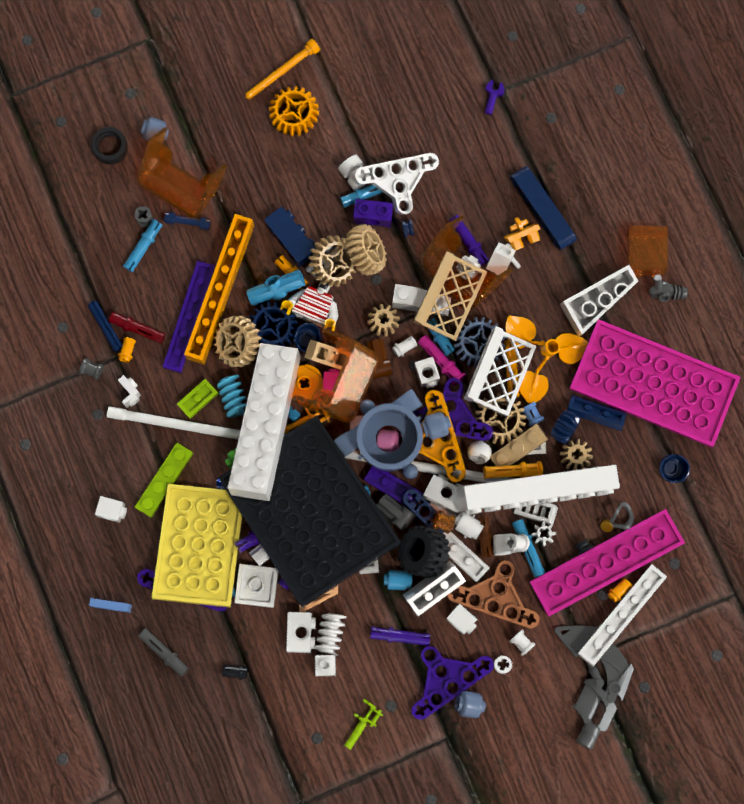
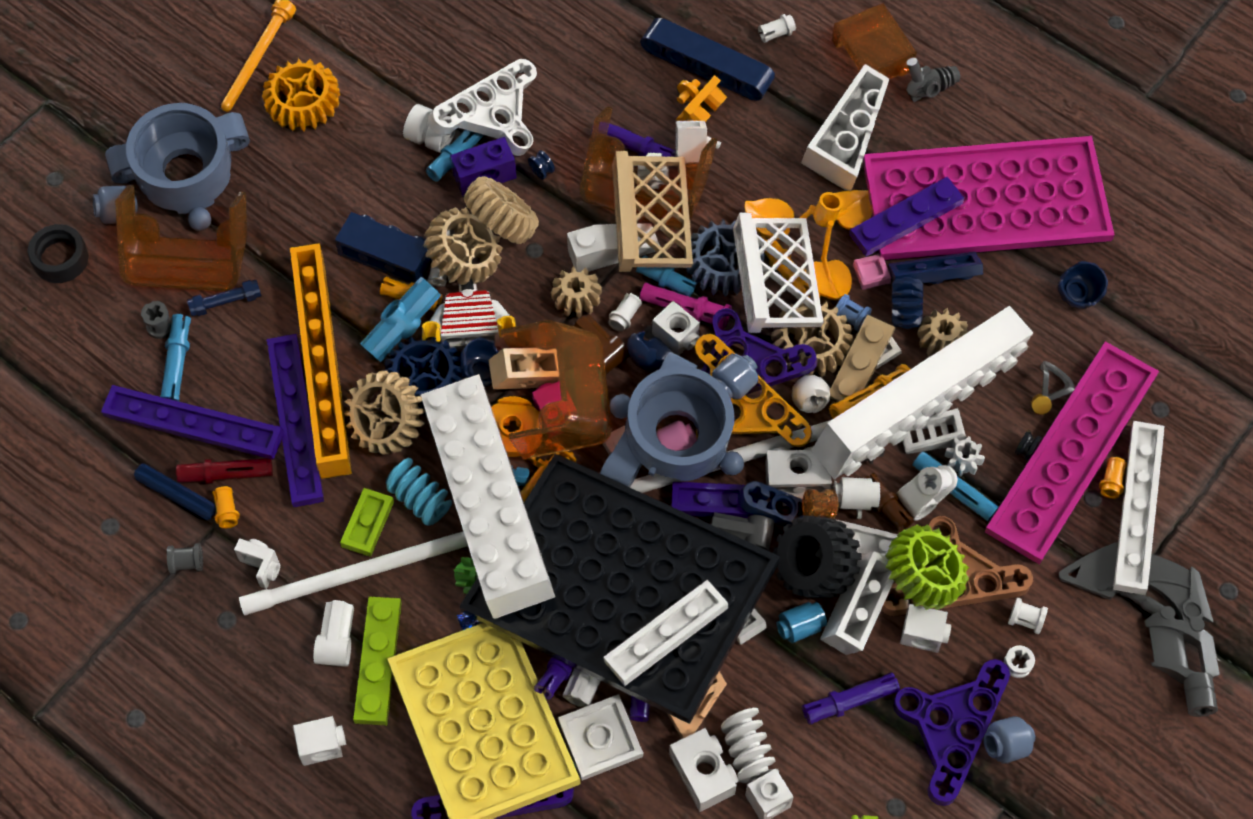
camera: 30 degrees left, 15 degrees down
(132, 290) = (192, 422): none -> dark purple plate
(145, 459) = (334, 642): none -> white piece
(200, 102) = (173, 132): none -> sand blue piece
(315, 554) = (665, 632): none -> white plate
(403, 379) = (647, 353): none -> dark blue hair
(486, 598) = (929, 586): none -> lime gear
(560, 394) = (871, 271): none -> bright pink tile
(597, 208) = (777, 28): none -> white pin
(598, 372) = (906, 216): none -> dark purple plate

